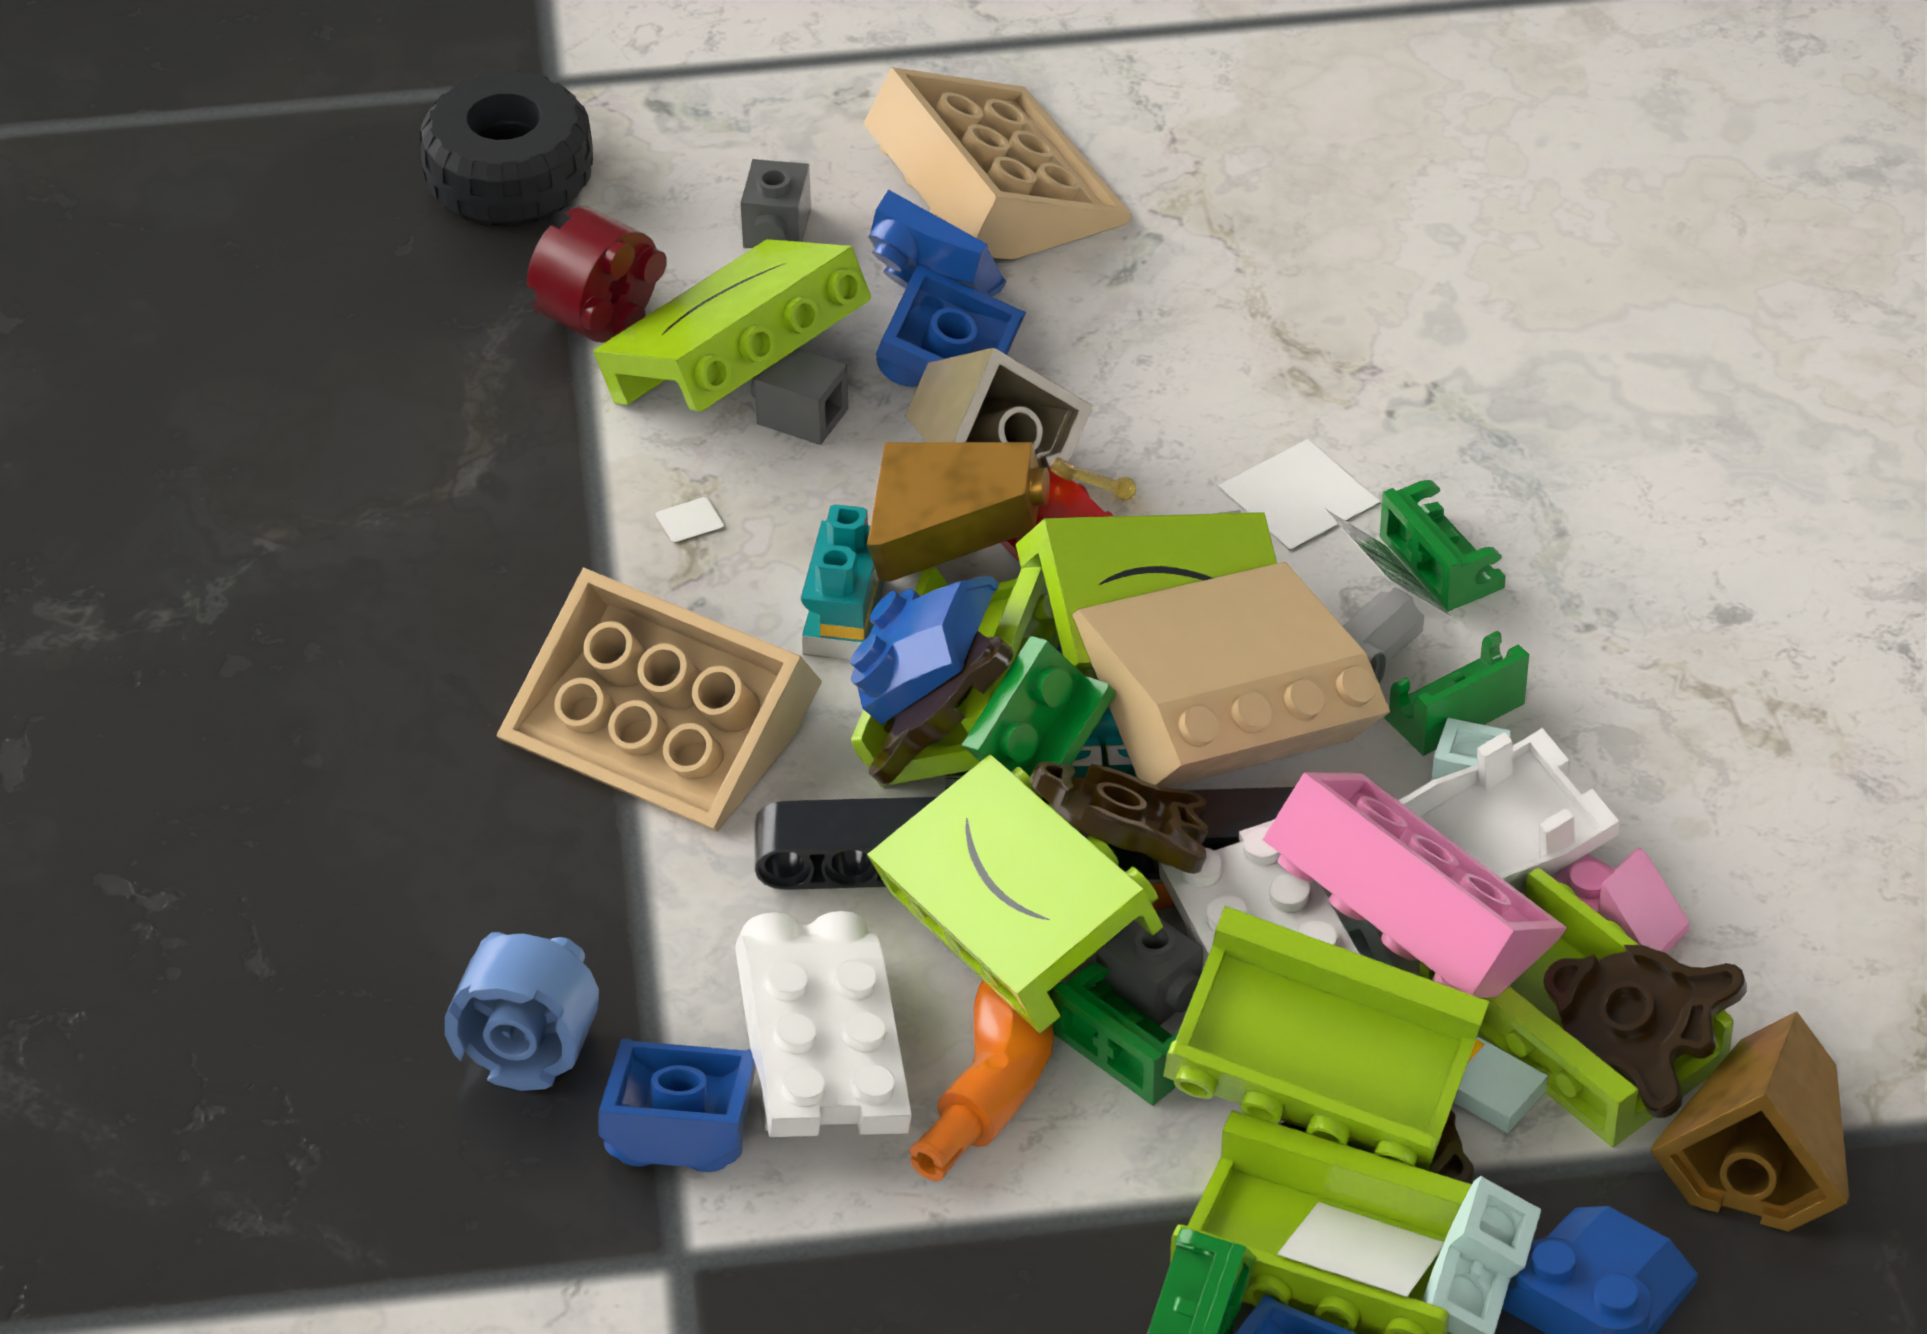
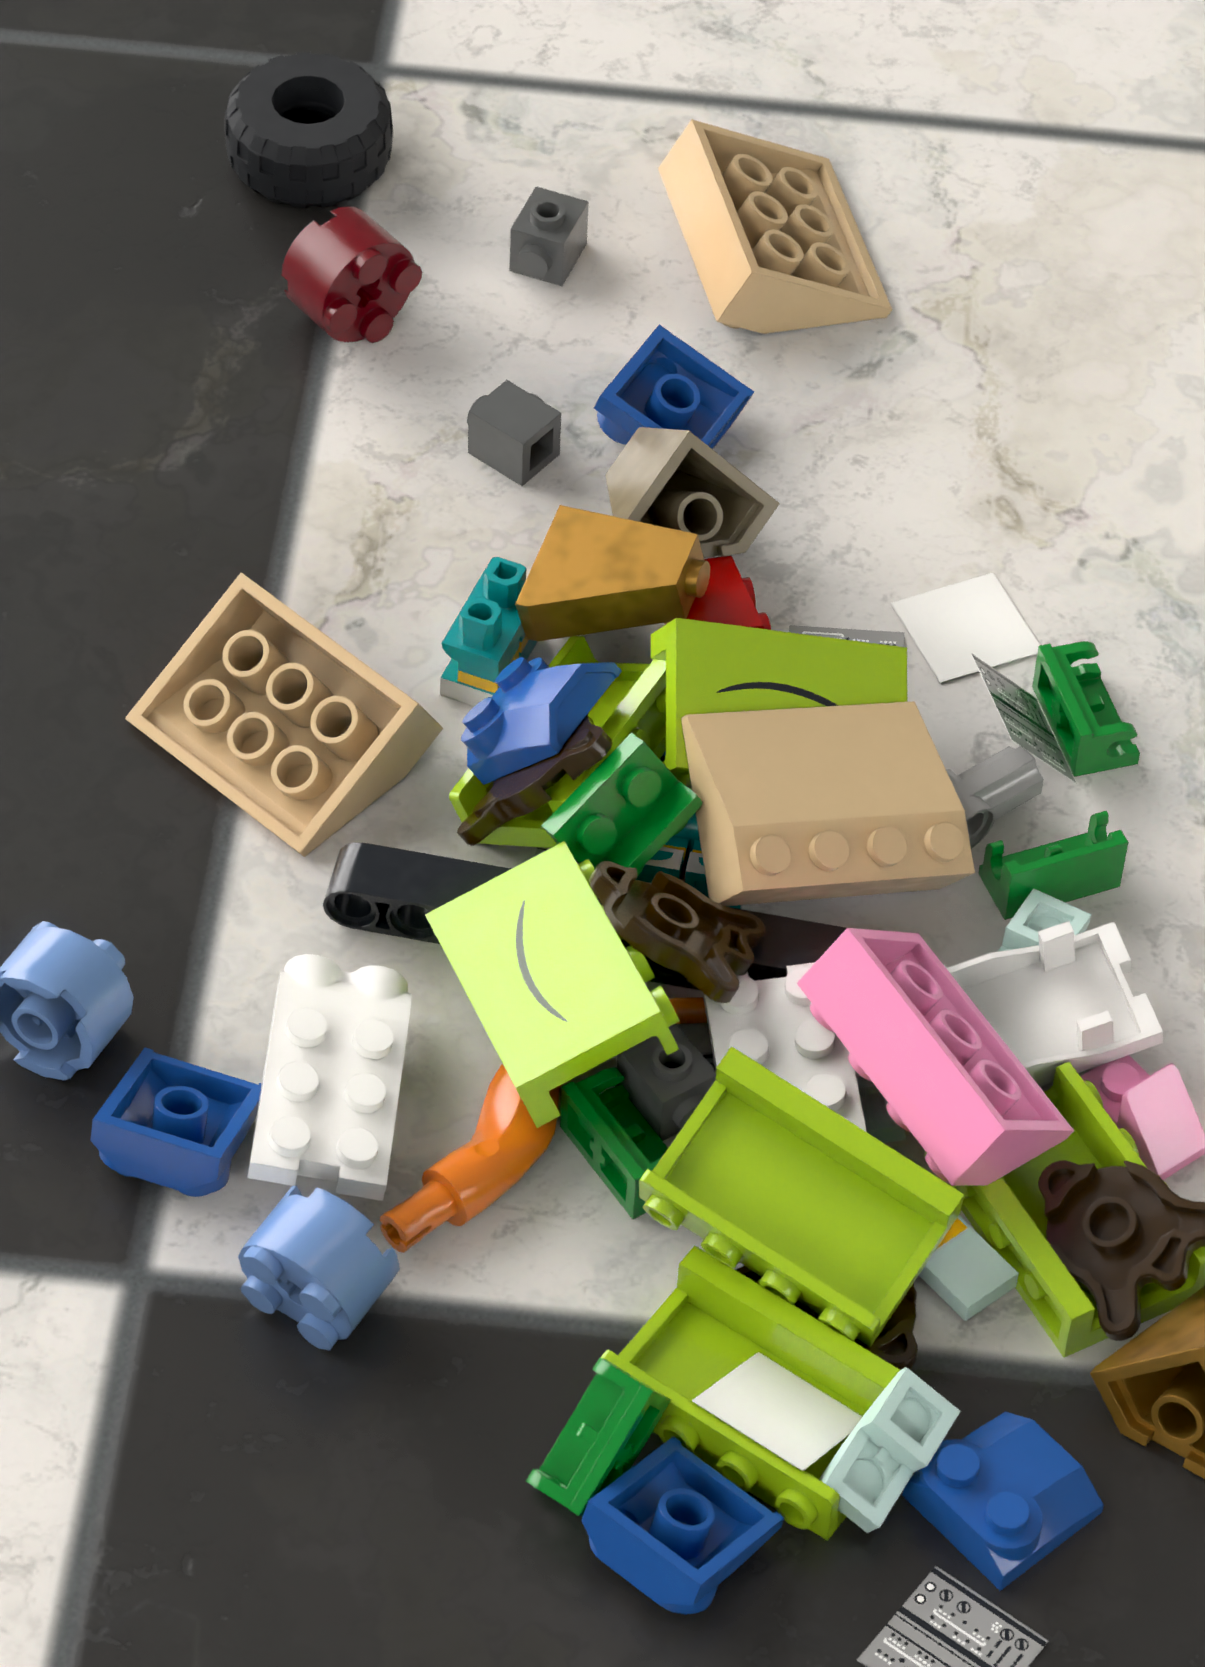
camera: 10 degrees right, 5 degrees up
(689, 519) = (374, 537): white sticker -> none
(735, 322) = (467, 350): lime panel -> none
(864, 1205) = (316, 1265): none -> medium blue brick
(913, 236) = (660, 297): blue slope -> none
(1123, 488) = (796, 588): clear yellow hinge -> none

